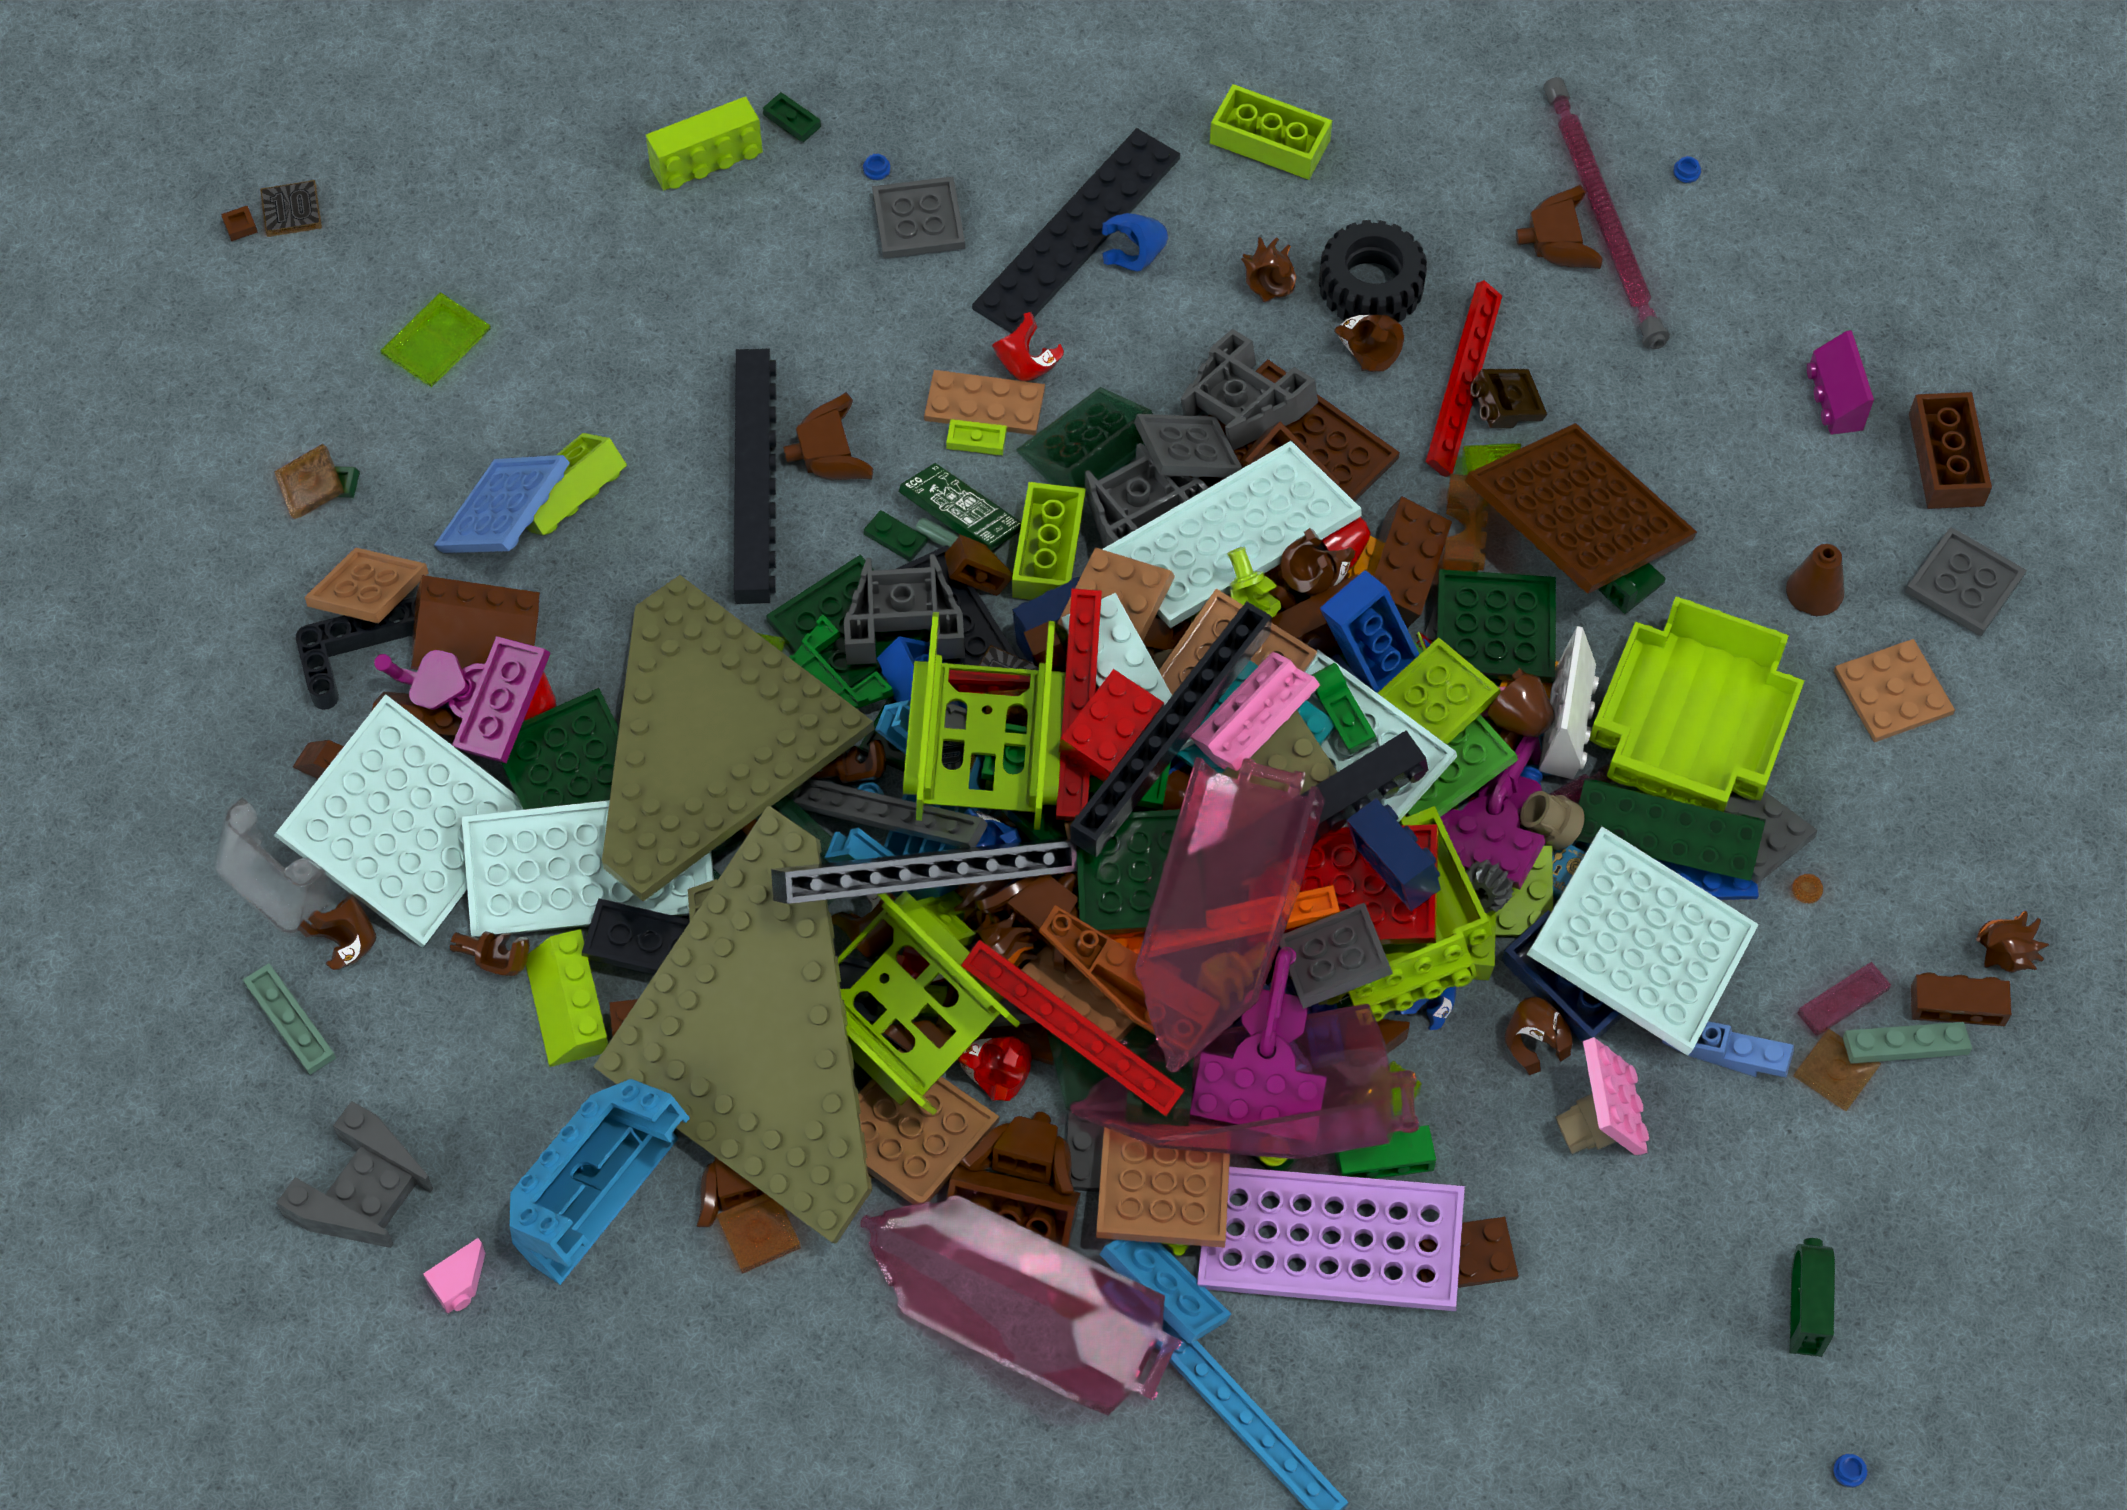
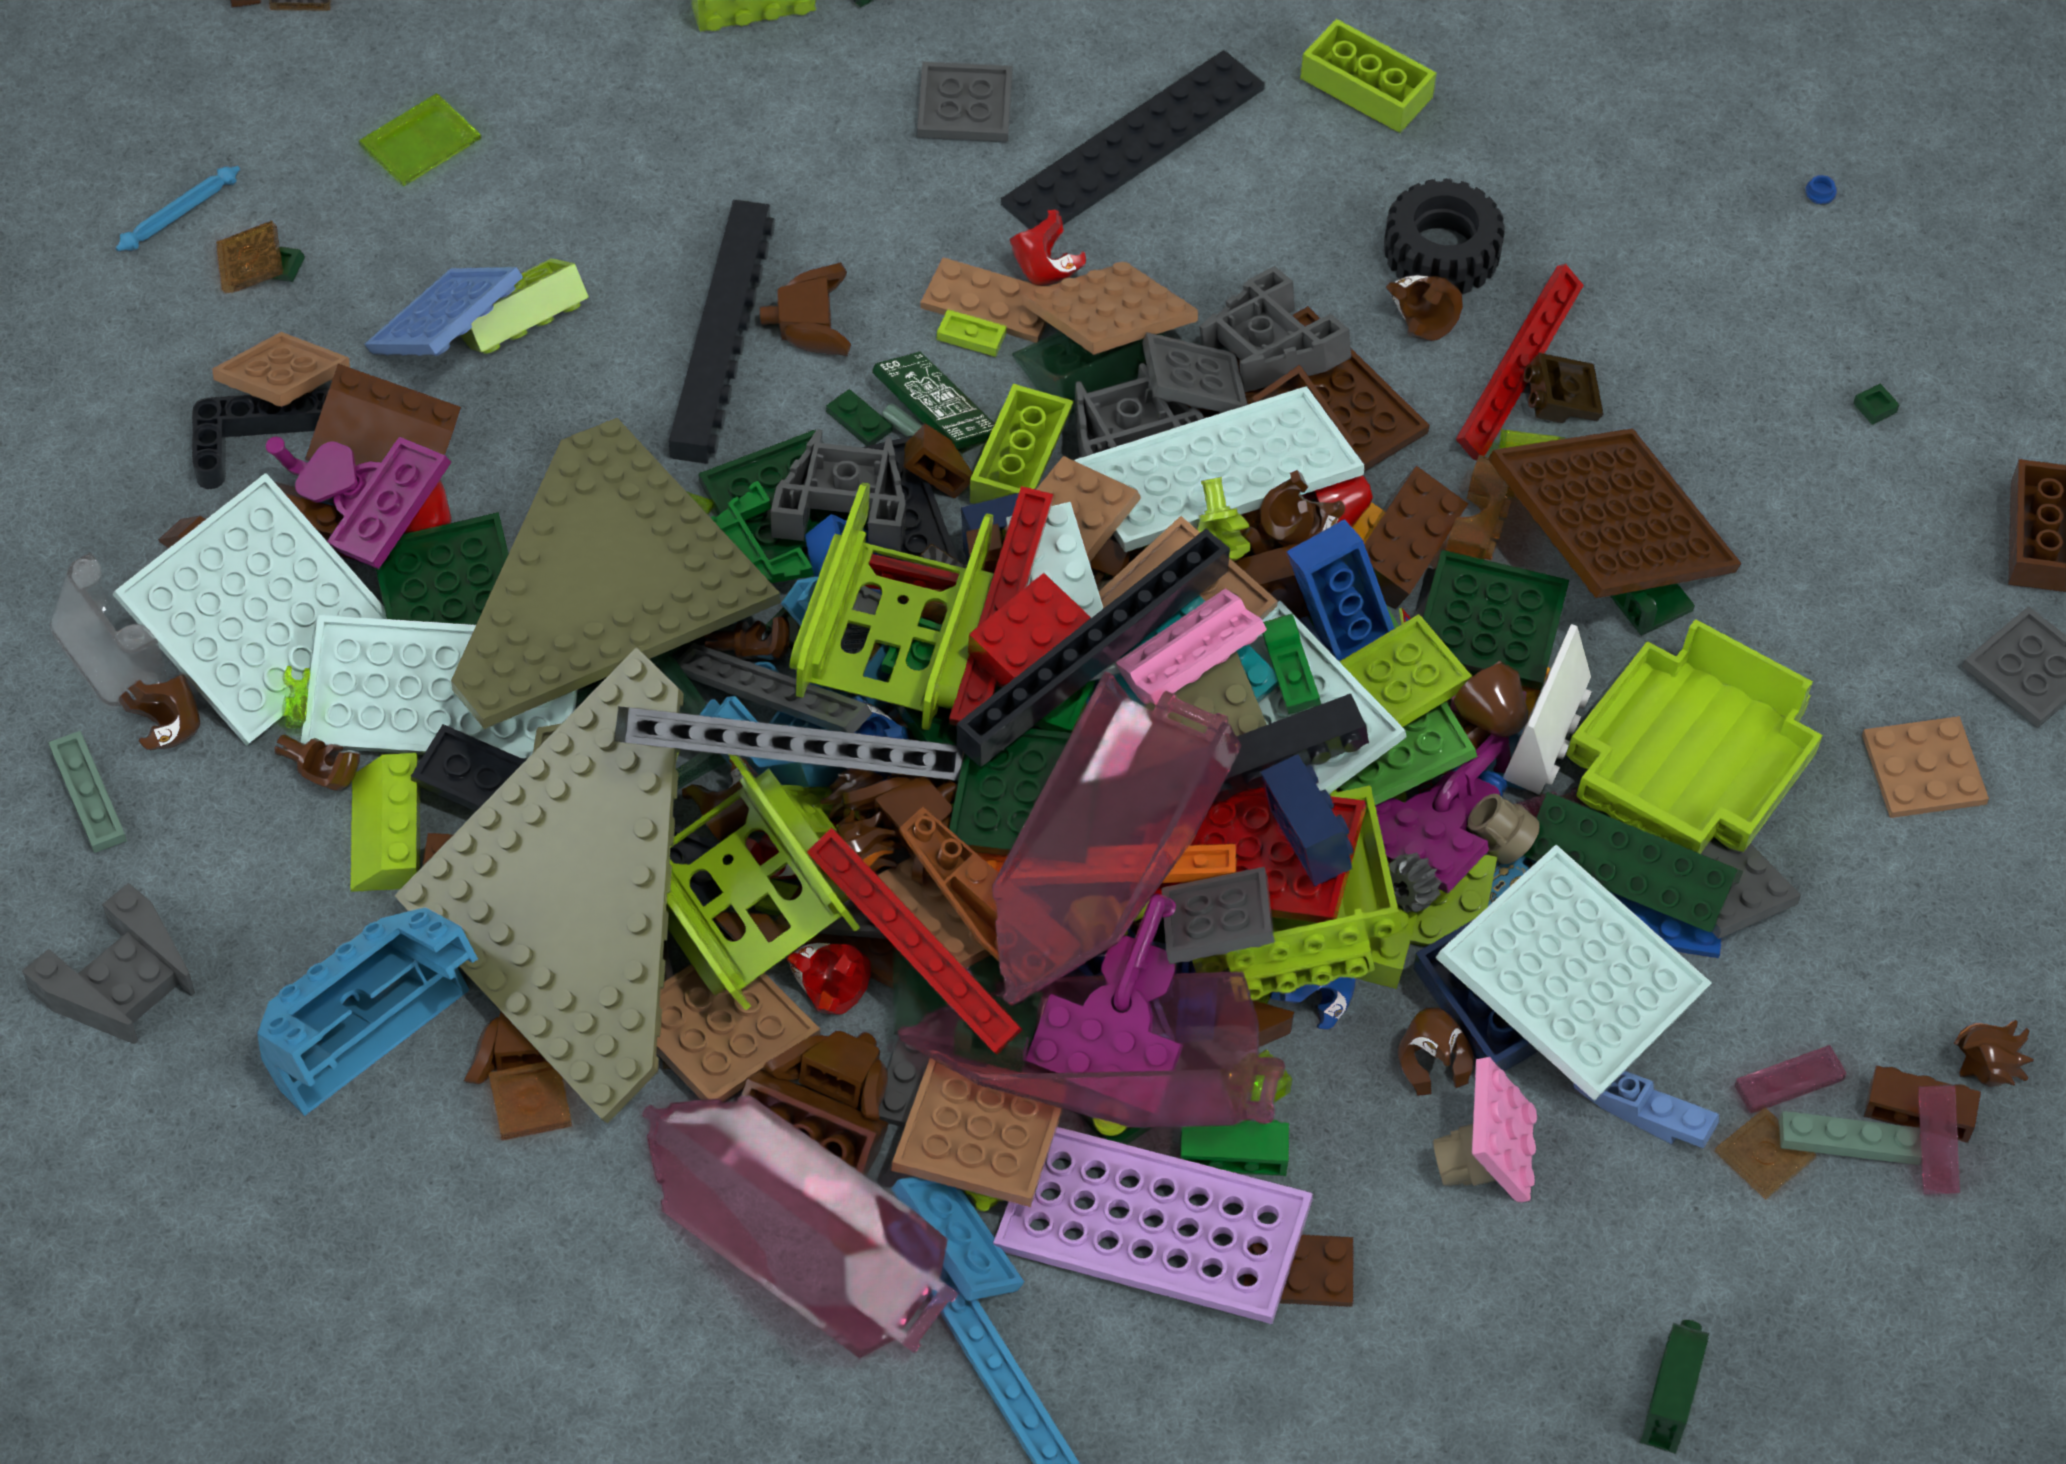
camera: 10 degrees right, 5 degrees down
(230, 445) = (177, 208): none -> dark azure wheel
(457, 1277) = (196, 1084): bright pink slope -> none
(459, 901) = (295, 705): none -> clear neon green plate
(876, 167) = (933, 44): blue plate -> none
(1096, 394) = (1109, 307): none -> medium nougat plate
(1144, 232) = (1206, 155): blue piece -> none
(1270, 271) = (1331, 216): reddish brown hair -> none
(1557, 232) = (1659, 229): reddish brown torso -> none
(1606, 215) = (1720, 228): clear pink hose -> none
(1779, 362) = (1876, 404): none -> dark green plate
(1807, 888) = (1777, 956): clear orange plate -> none
(1818, 582) = (1864, 636): reddish brown cone -> none
(1841, 385) = (1937, 437): magenta slope -> none
(1984, 1031) = (1938, 1139): none -> clear pink plate

